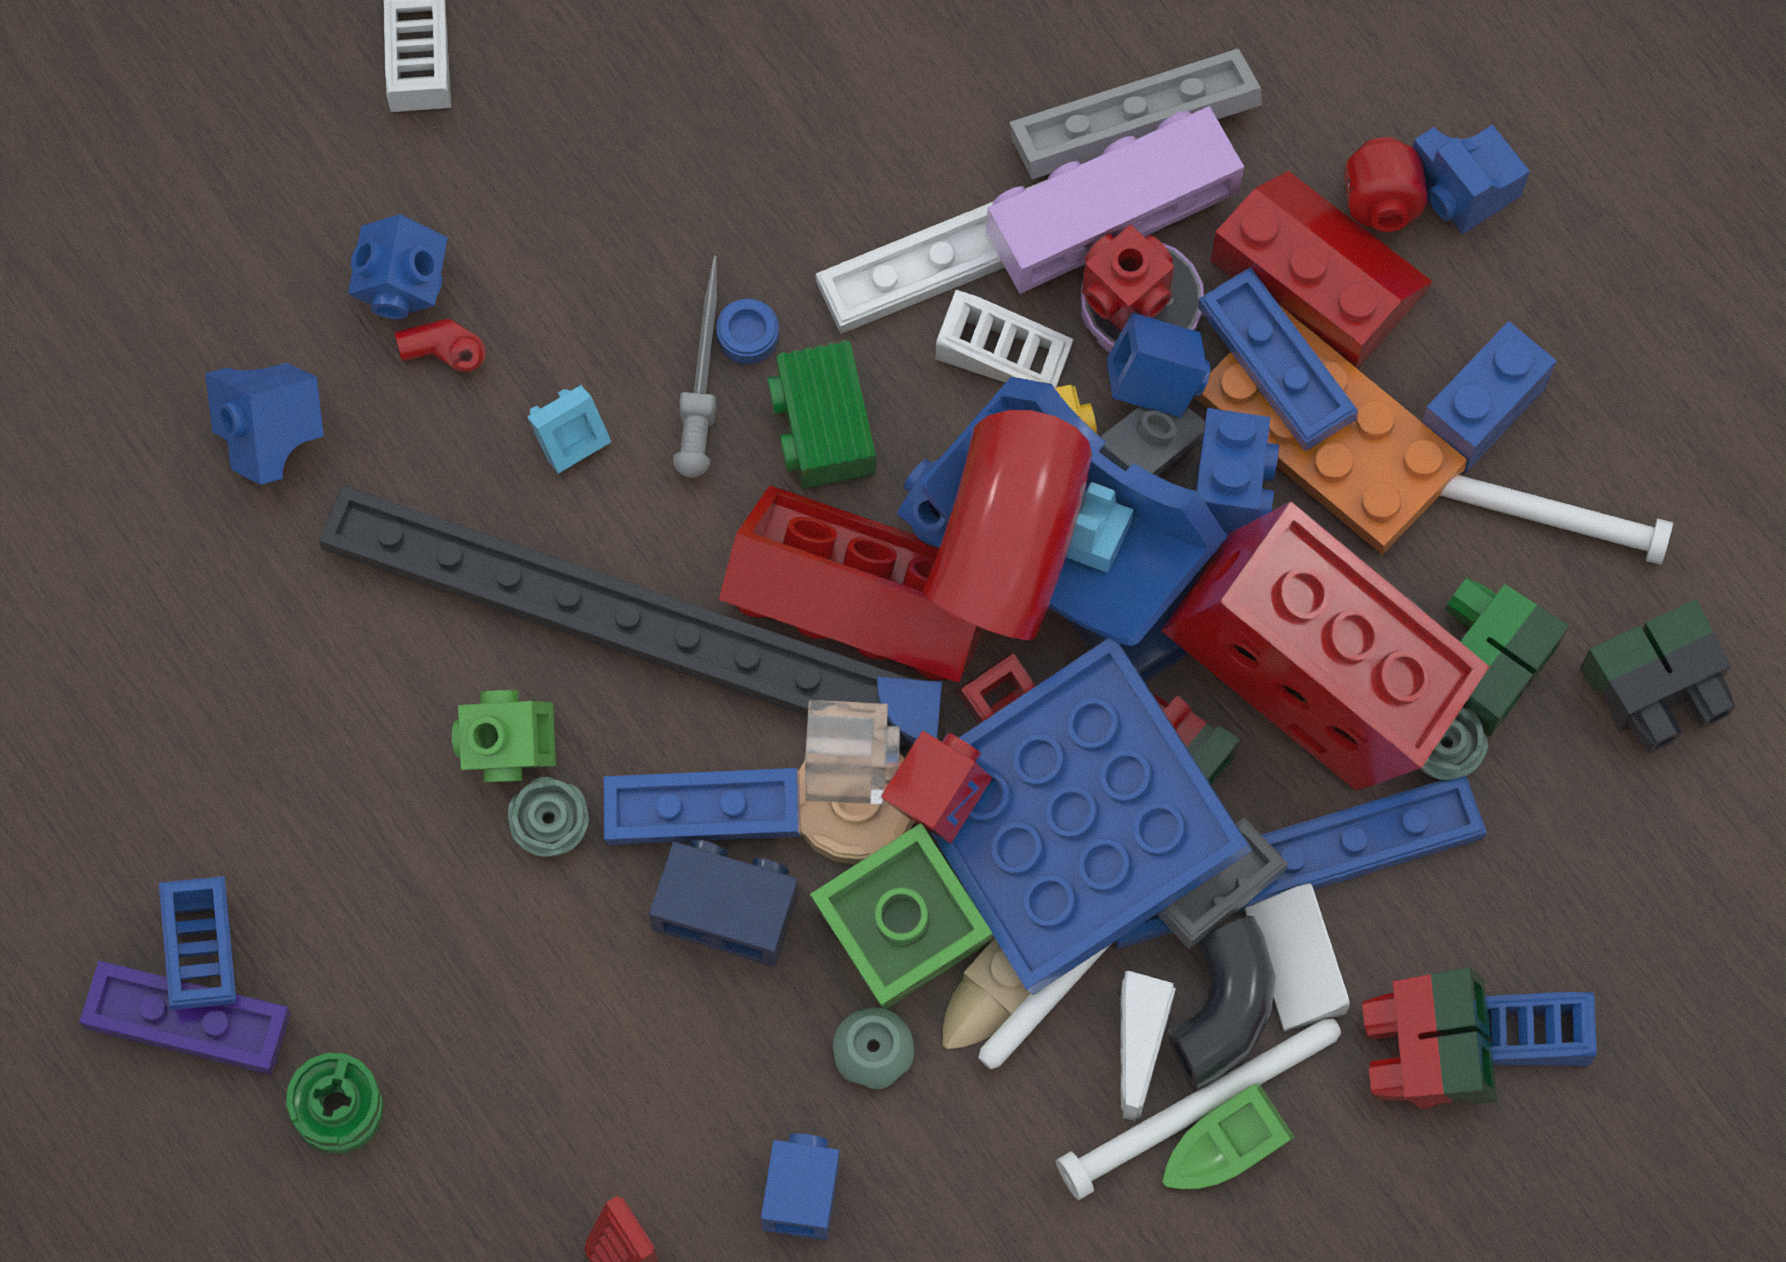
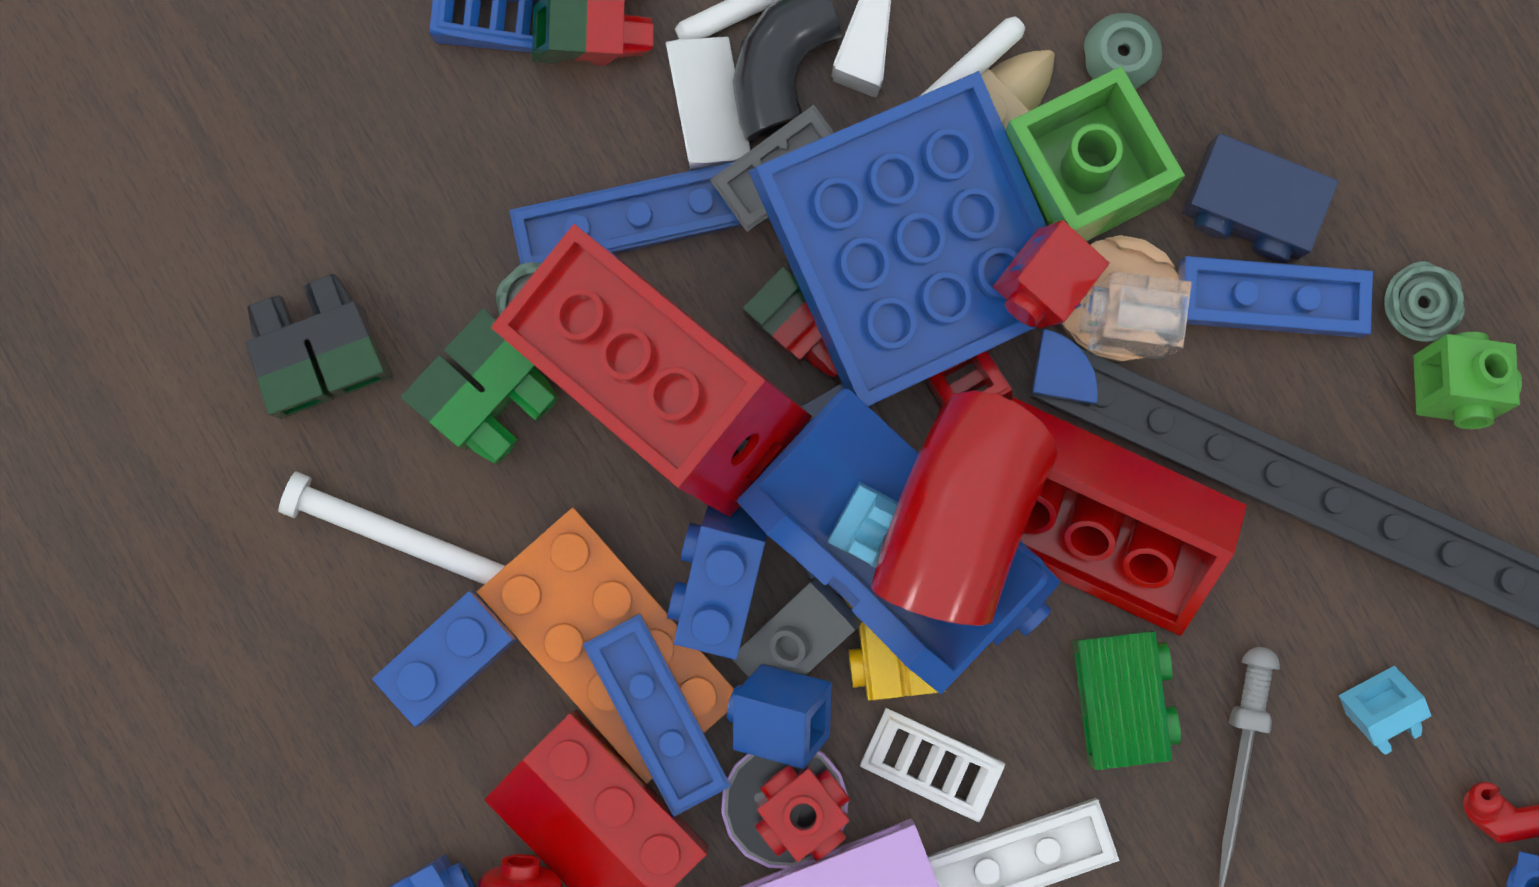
camera: 170 degrees left, 15 degrees up
(747, 331) = (1192, 805): blue tile -> none

